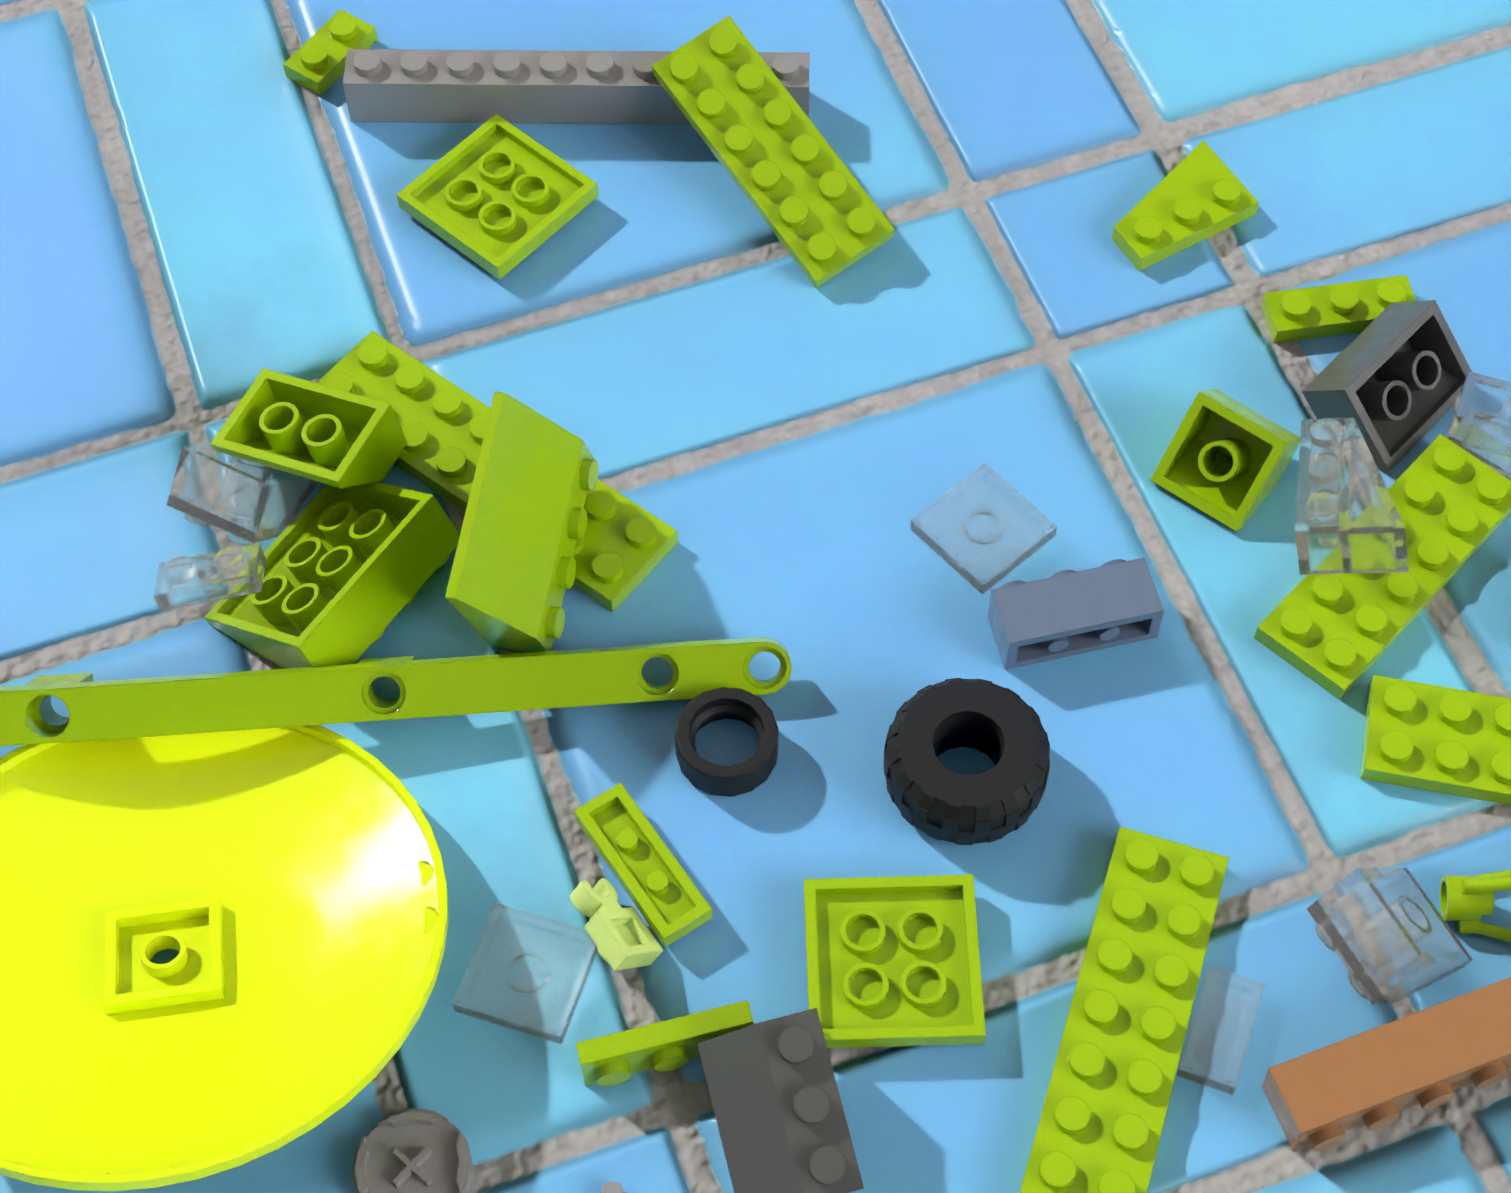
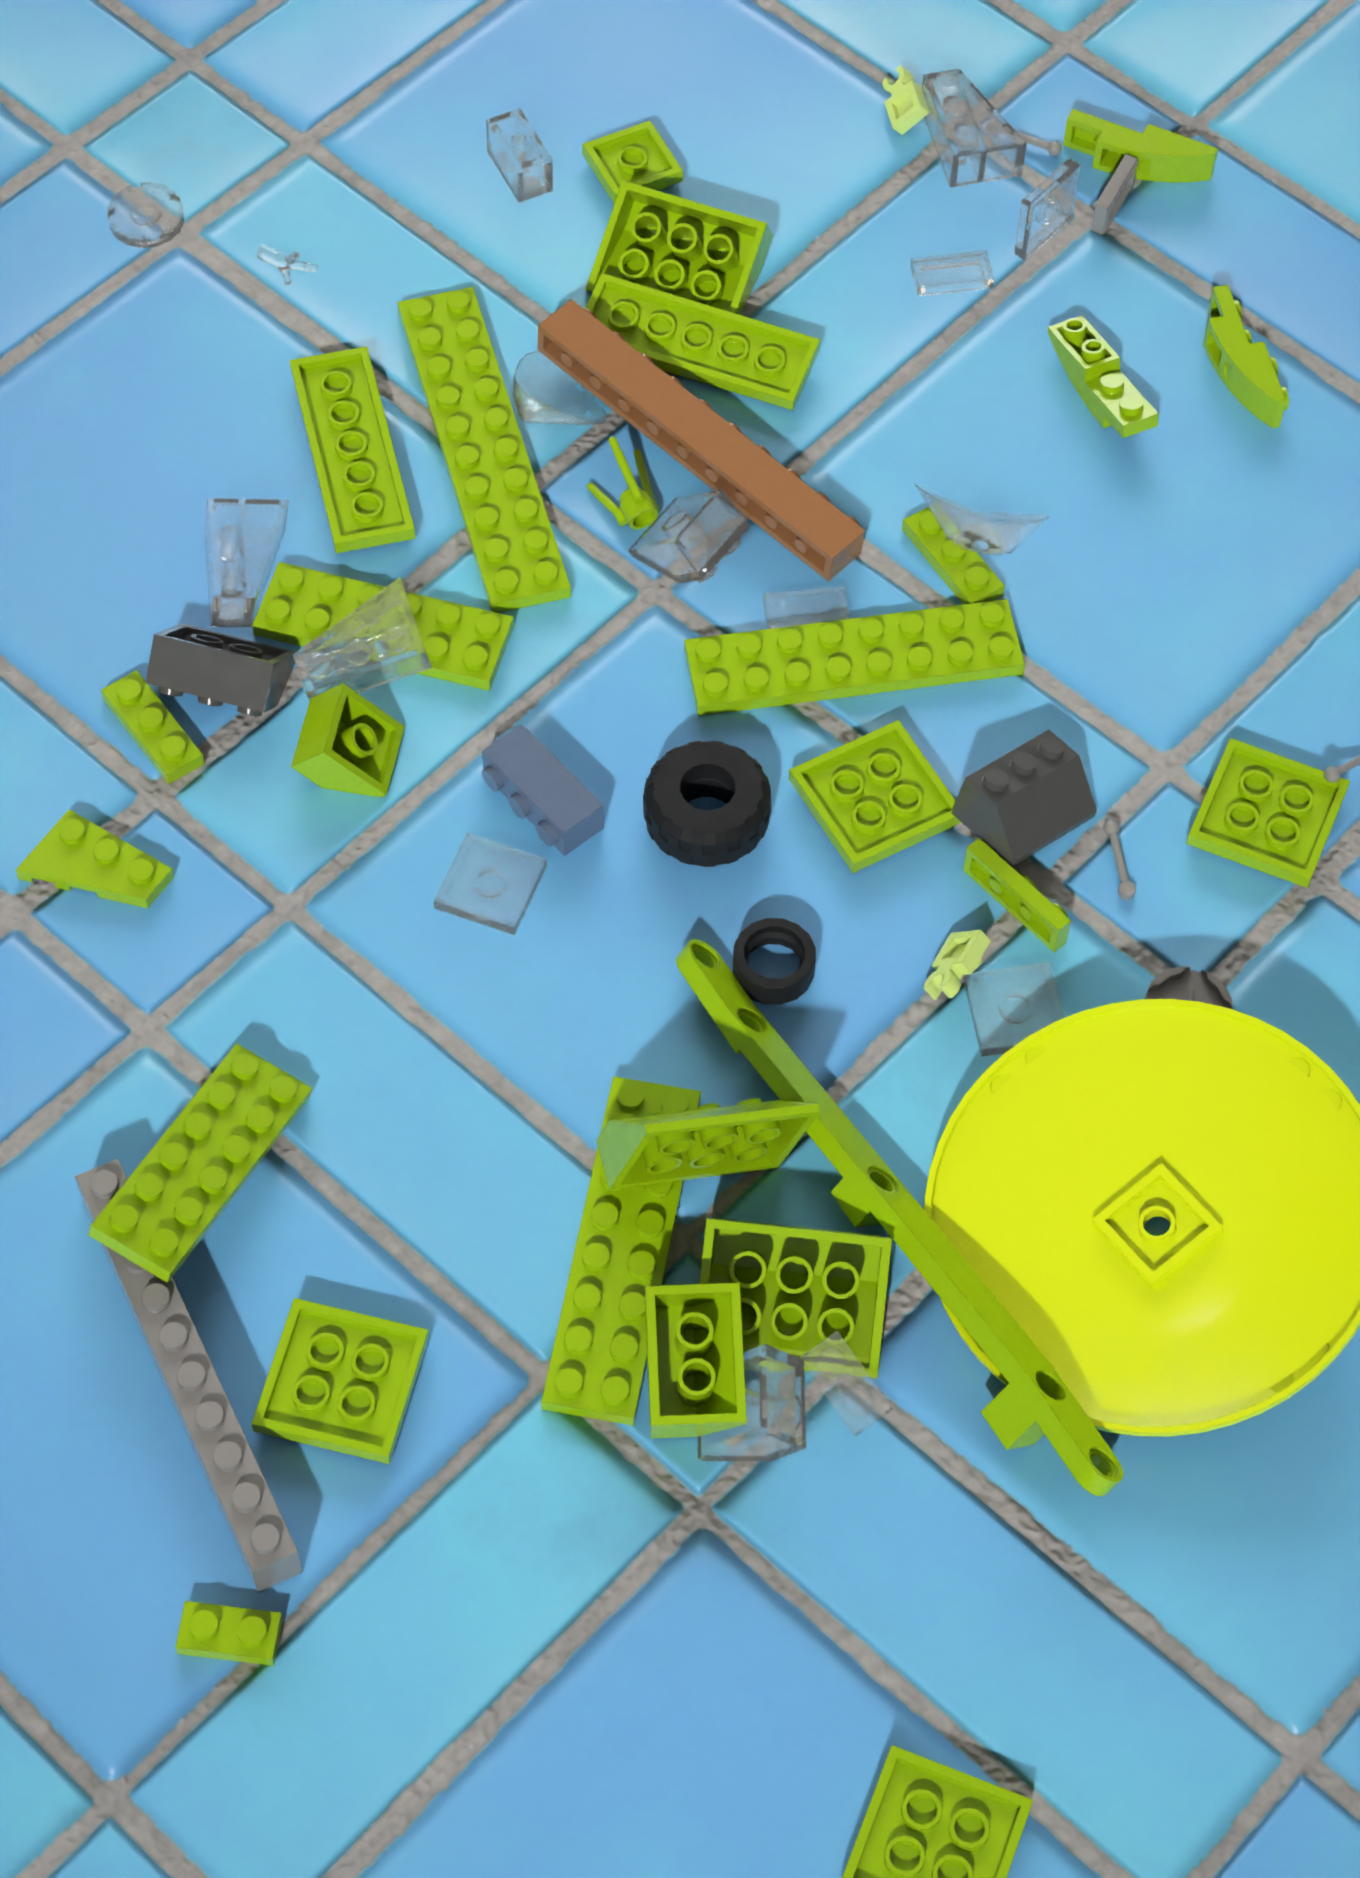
camera: 120 degrees left, 0 degrees up
(643, 864) = (898, 971): lime plate -> none

